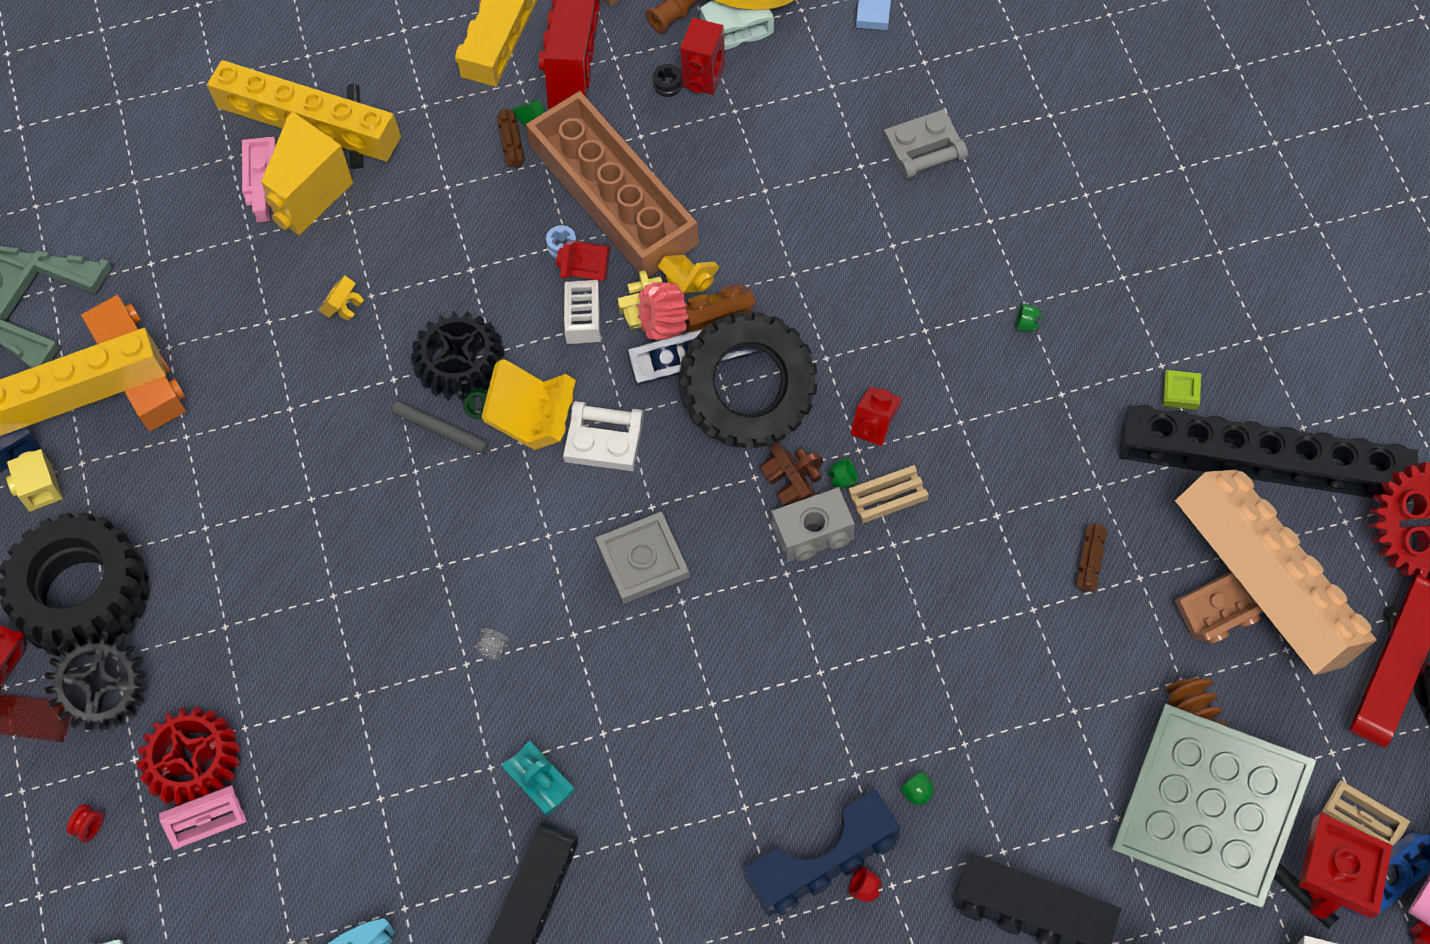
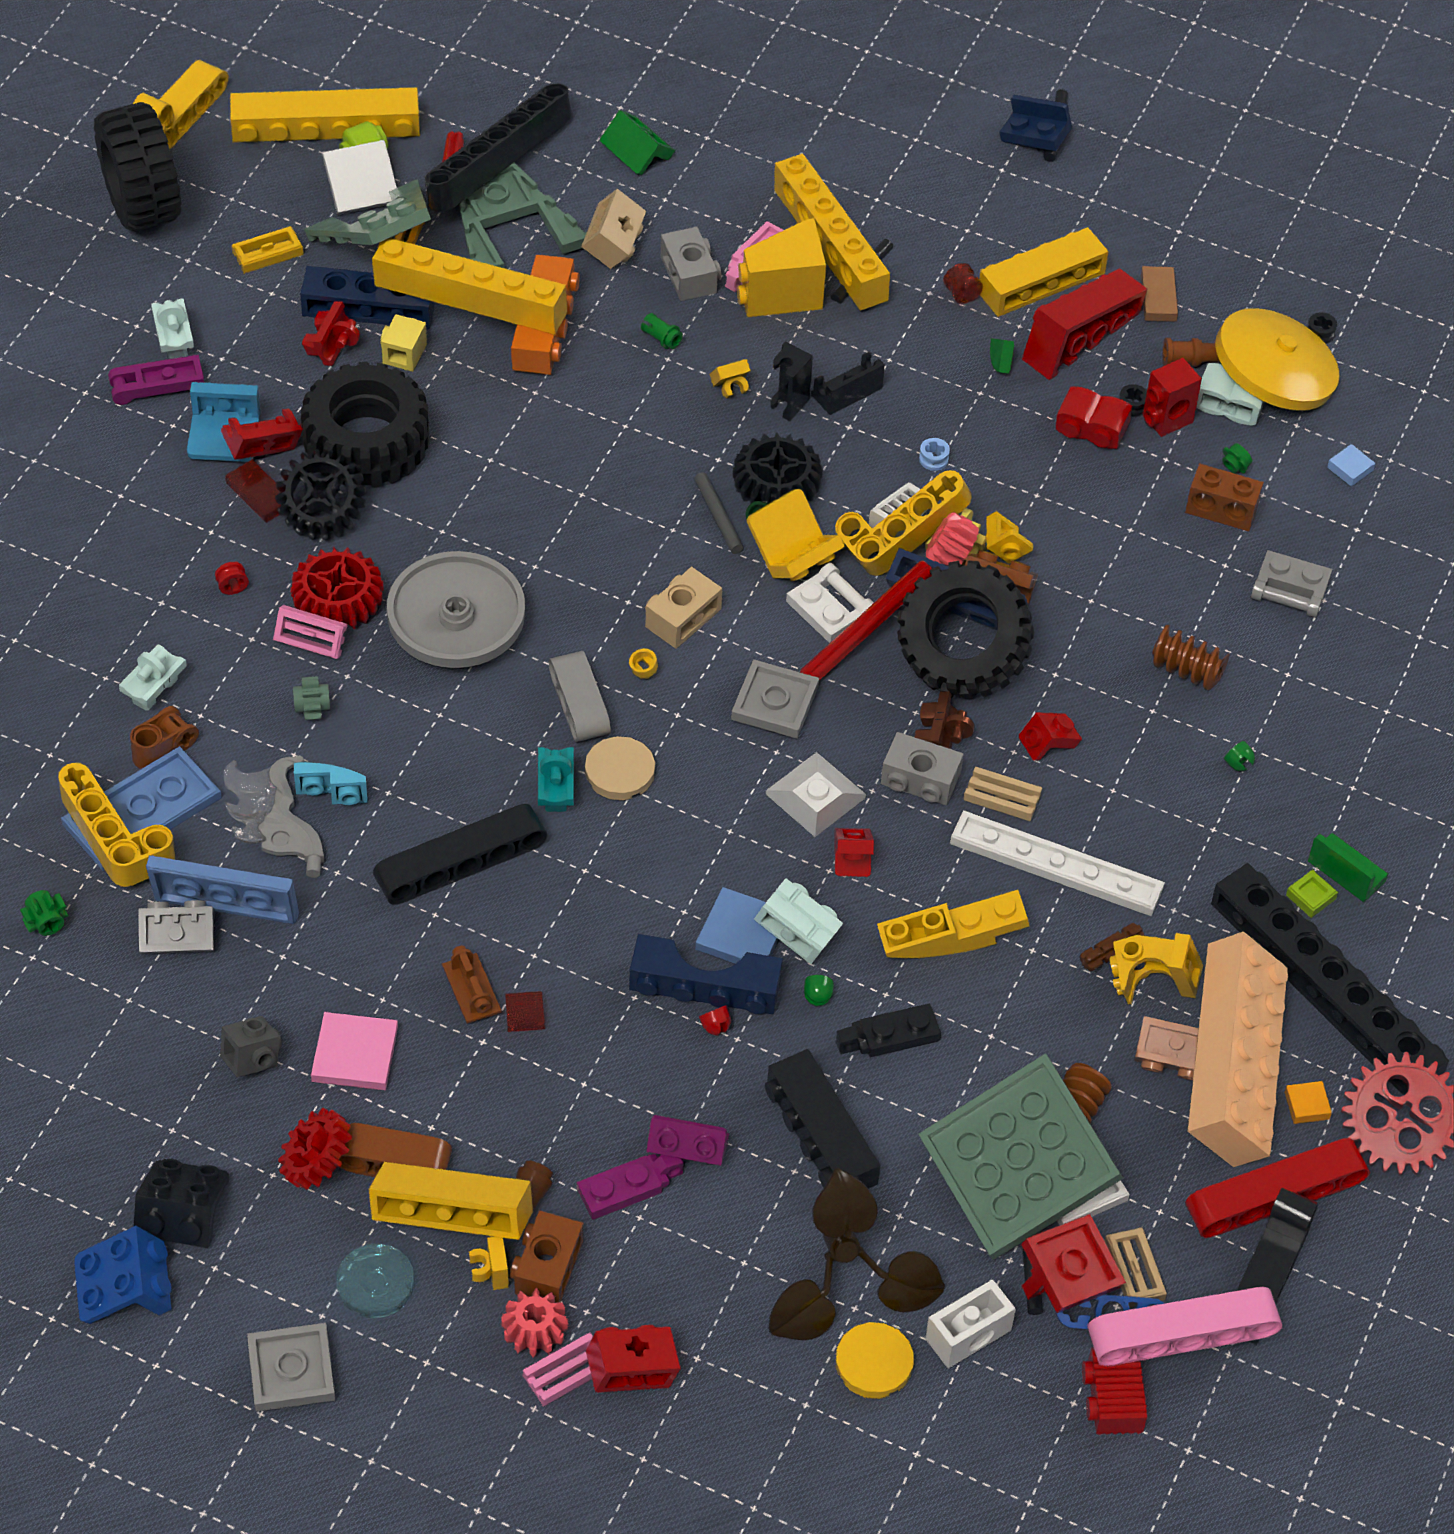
camera: 35 degrees right, 10 degrees down
(64, 150) = (634, 142): none -> green panel
(122, 241) = (614, 229): none -> tan brick
(224, 237) = (689, 263): none -> light grey brick
(244, 301) = (667, 334): none -> green pin
(263, 880) = (311, 698): none -> sand green gear
(312, 694) = (456, 609): none -> light grey dish
(397, 265) = (793, 379): none -> black hinge
(440, 233) = (849, 386): none -> black hinge
(448, 78) = (962, 283): none -> clear red wheel
(485, 686) = (579, 696): none -> light grey beam
(491, 643) = (611, 673): clear bush -> none
(499, 555) = (683, 607): none -> tan brick
(510, 138) = (969, 357): reddish brown axle -> none
(510, 605) = (648, 658): none -> yellow hinge
(576, 723) = (620, 768): none -> tan tile
(583, 260) = (927, 466): red bracket -> none
(605, 317) = (906, 518): none -> yellow beam
(612, 183) = (1010, 436): nougat brick -> none
(655, 117) = (1093, 417): none -> red brick
(657, 432) = (866, 622): none -> red axle
(748, 614) = (815, 794): none -> white slope
(790, 71) = (1236, 458): none -> green plate
(807, 785) = (732, 928): none -> medium blue tile
(814, 110) = (1224, 497): none -> dark orange brick
(826, 639) = (853, 851): none -> red slope
(844, 473) = (983, 754): green hinge -> none
(852, 742) = (798, 920): none -> light aqua brick
(917, 264) = (1189, 659): none -> dark orange piece
(967, 643) = (953, 931): none -> yellow slope
(981, 520) = (1057, 863): none -> white tile
(1003, 774) = (890, 1032): none -> black hinge
(1159, 532) = (1166, 956): none -> yellow tile
(1186, 346) = (1346, 866): none -> green panel
(1346, 567) = (1308, 1102): none -> light orange tile

